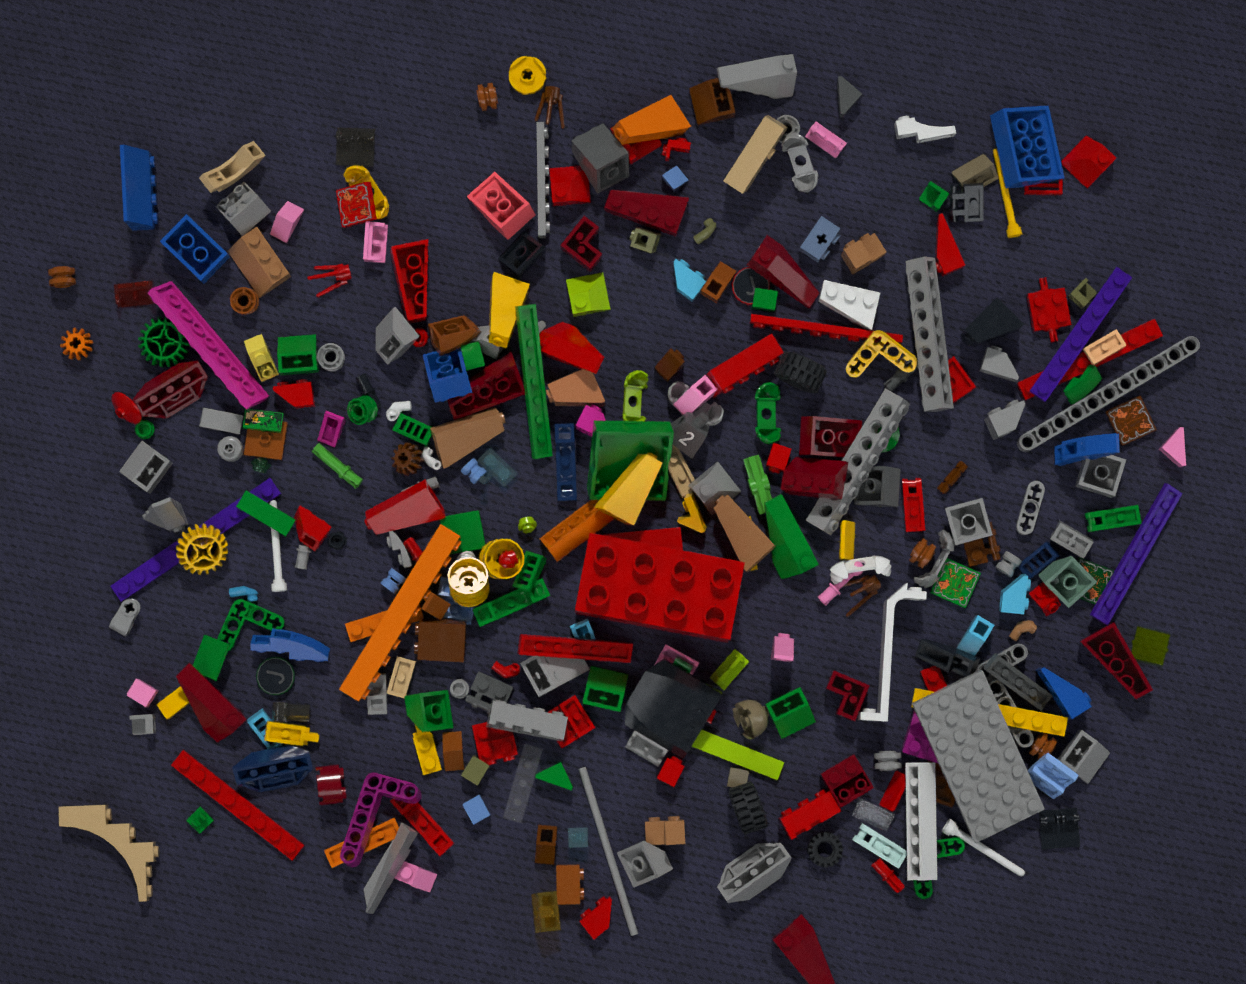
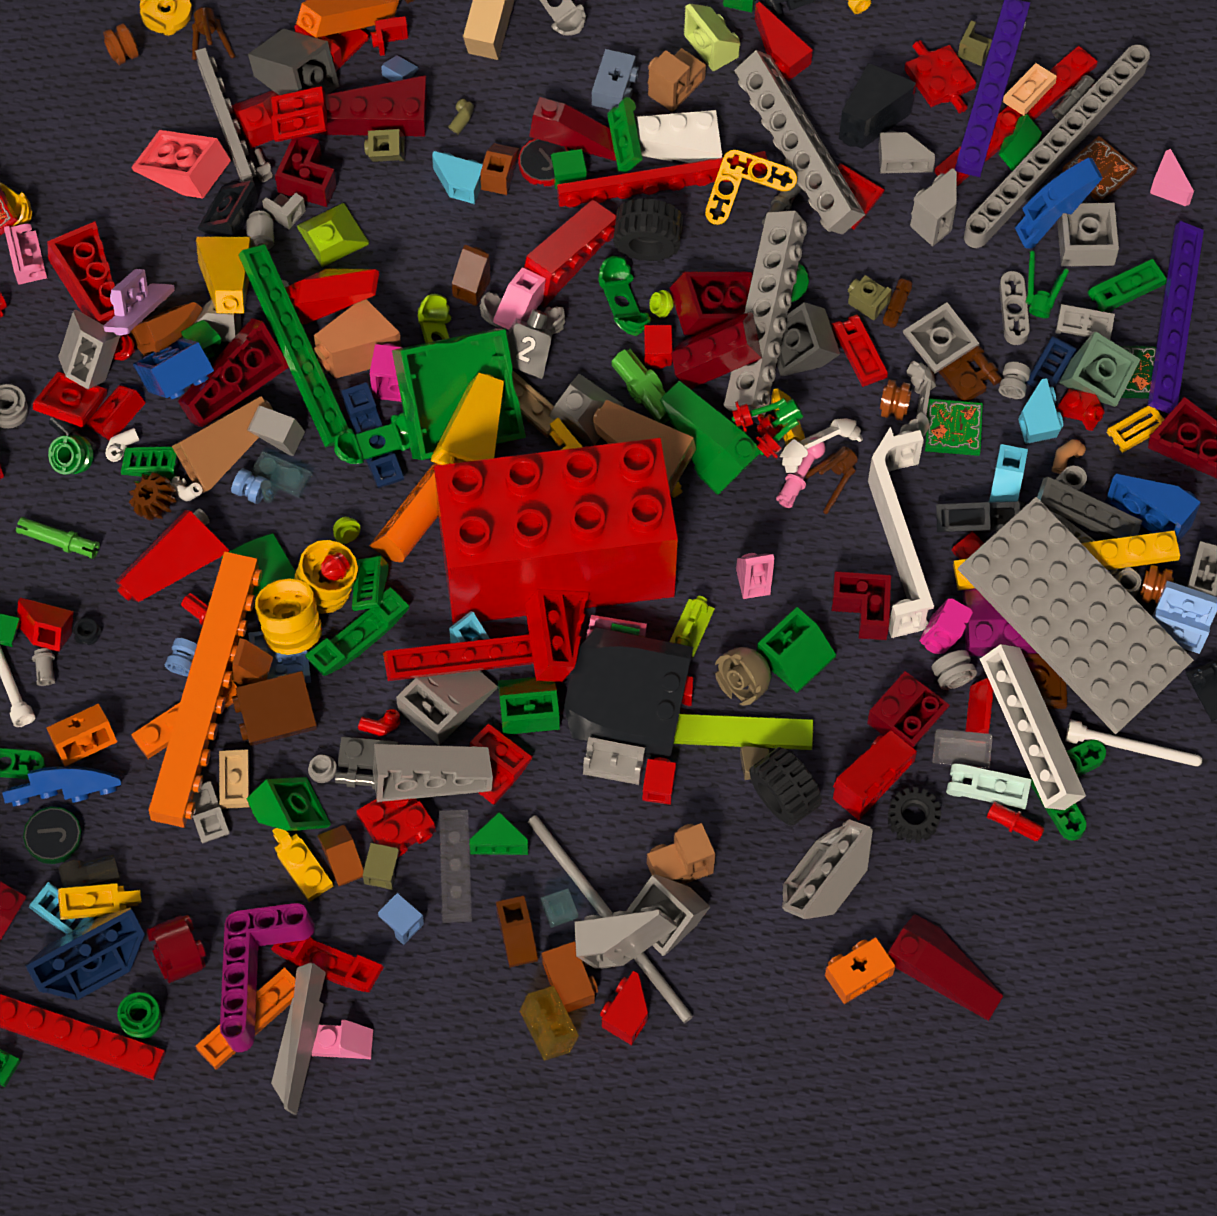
camera: 15 degrees left, 20 degrees down
(304, 818) = (139, 1002): none -> green wheel
(312, 616) = (81, 735): none -> orange brick
(331, 428) = (34, 490): dark pink slope -> none
(372, 368) = (69, 400): none -> red tile
(396, 544) = (176, 610): light grey slope -> none
(402, 383) = (116, 412): none -> red slope
(436, 314) = (134, 301): none -> lavender bracket
(502, 439) = (276, 429): none -> light grey slope
(539, 278) = (260, 229): none -> light grey brick
(551, 466) = (357, 448): none -> green piece
(556, 230) = (264, 171): none -> light grey hand
(561, 264) = (285, 210): none -> light grey panel
(591, 203) = (299, 114): none -> red slope
(599, 873) = (621, 937): none -> light grey slope
(636, 652) = (554, 631): none -> red wedge
(762, 944) = (852, 983): none -> orange brick
(792, 425) = (661, 303): none -> lime plate
(810, 290) = (624, 135): none -> green plate
(830, 546) = (769, 426): none -> plant
(892, 732) = (945, 626): none -> dark pink brick
(899, 227) = (710, 36): none -> yellowish green slope
(934, 475) = (868, 297): none -> olive brick
(1050, 513) = (1042, 302): none -> green plant
(1061, 628) = (1119, 439): none -> yellow tile
(1135, 359) = (1072, 96): none -> dark grey pin

